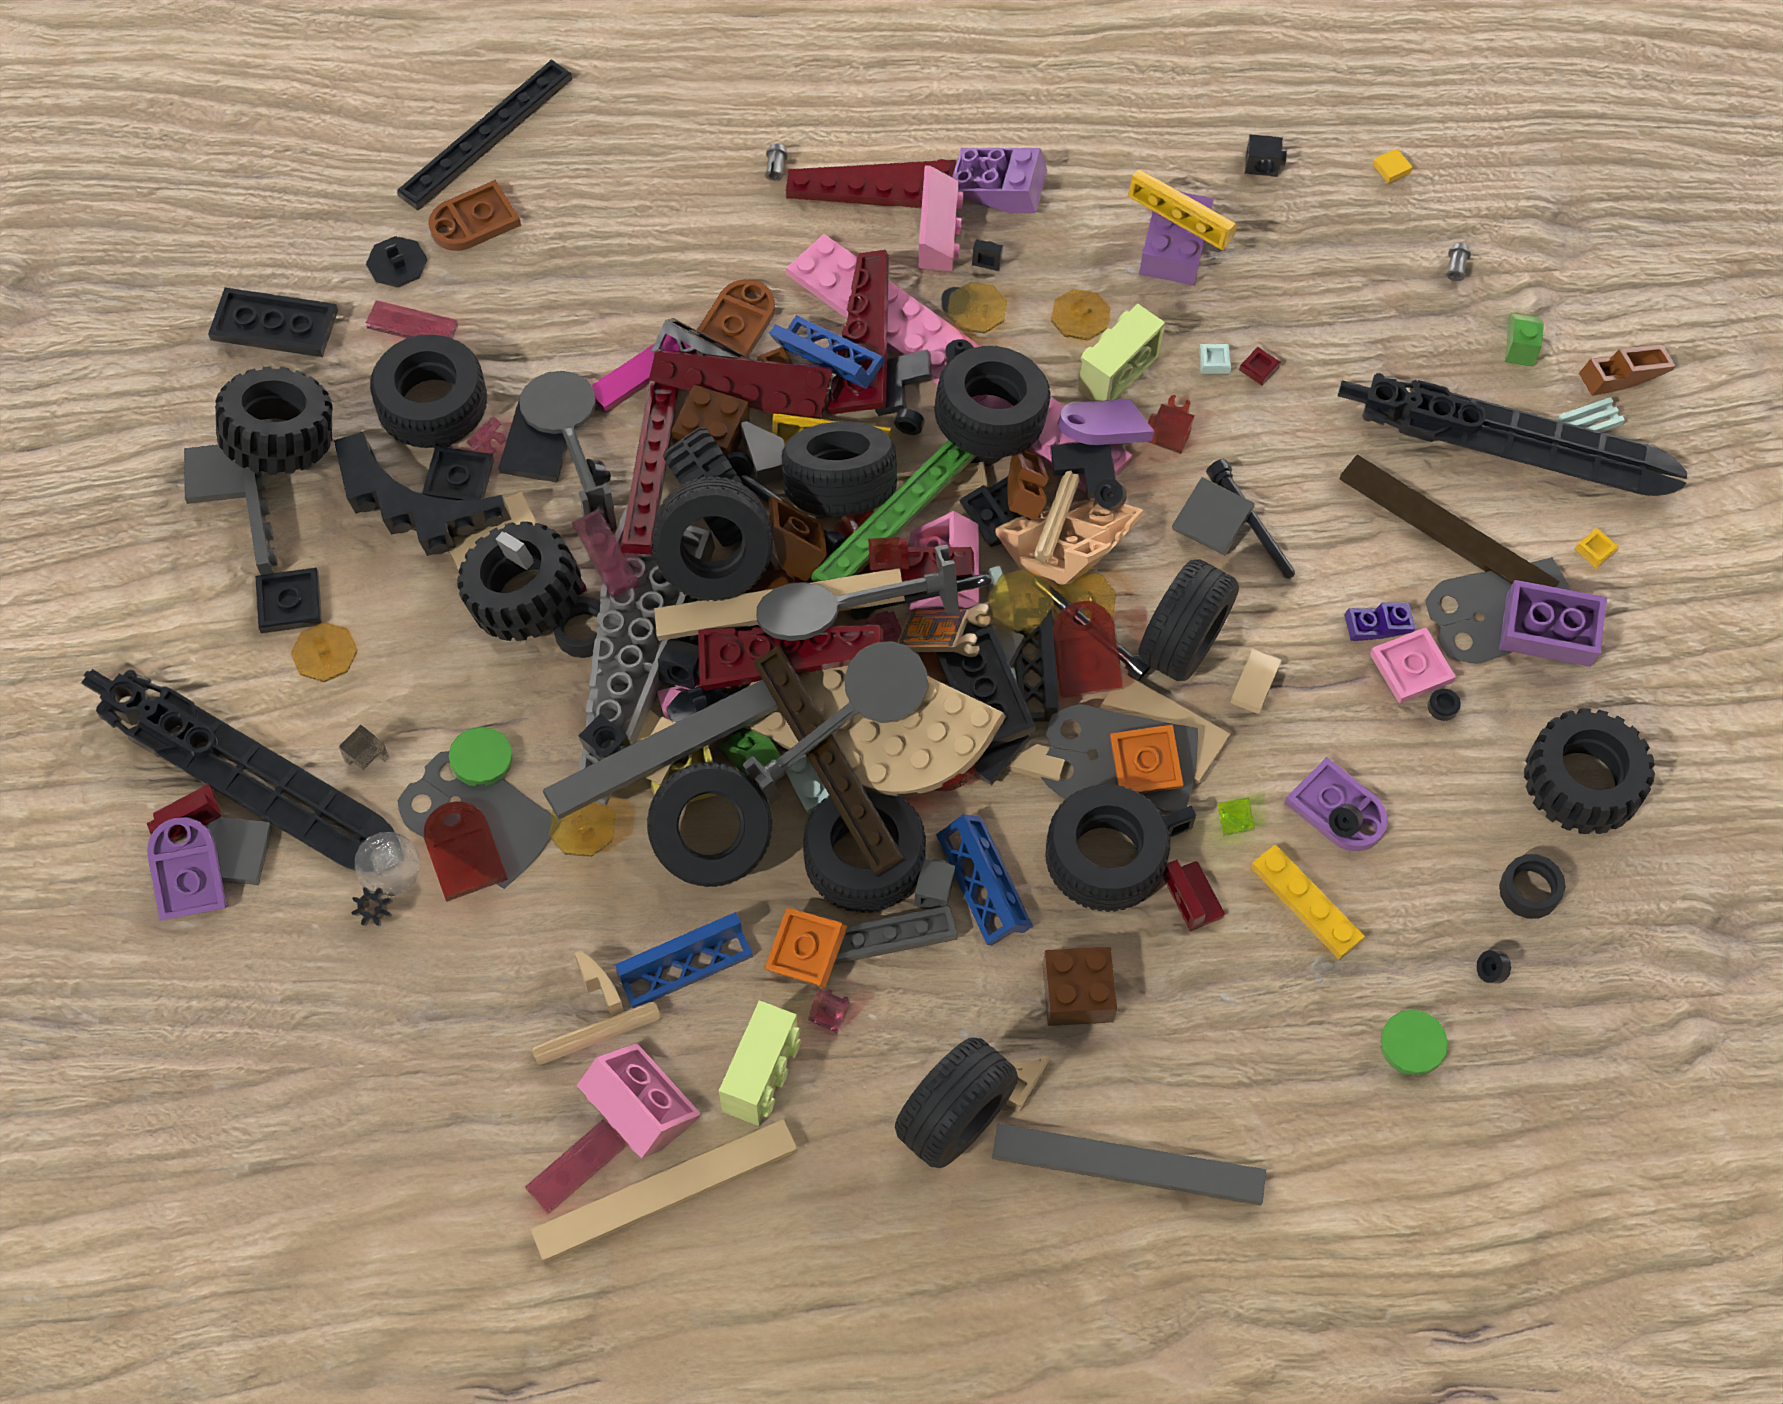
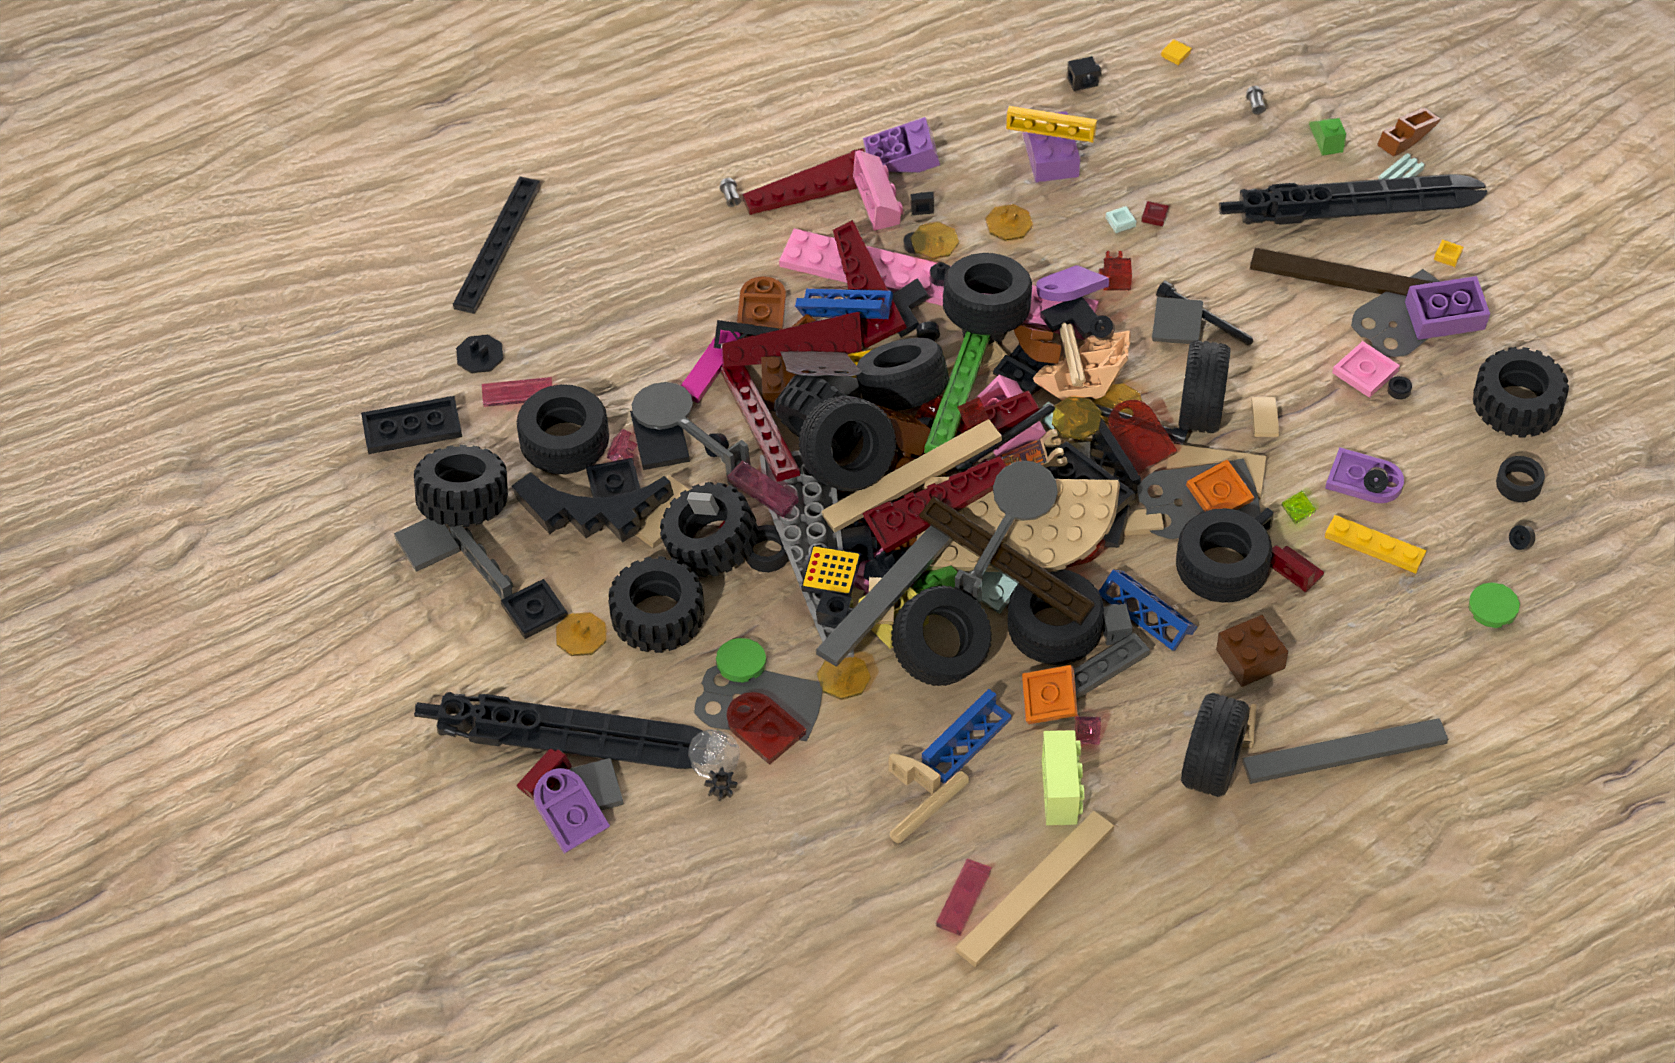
camera: 20 degrees left, 10 degrees down
(362, 748) = (654, 681): clear smoke panel -> none
(410, 617) = (662, 629): none -> black tyre
(473, 217) = (522, 303): dark orange tile -> none
(629, 690) = (831, 571): none -> yellow tile
(638, 1099) = (984, 837): bright pink slope -> none
(759, 420) = (811, 361): none -> dark grey piece
(808, 609) = (942, 467): dark grey piece -> none
(1120, 355) = (1057, 235): yellowish green brick -> none
(1383, 622) = (1329, 350): dark purple slope -> none

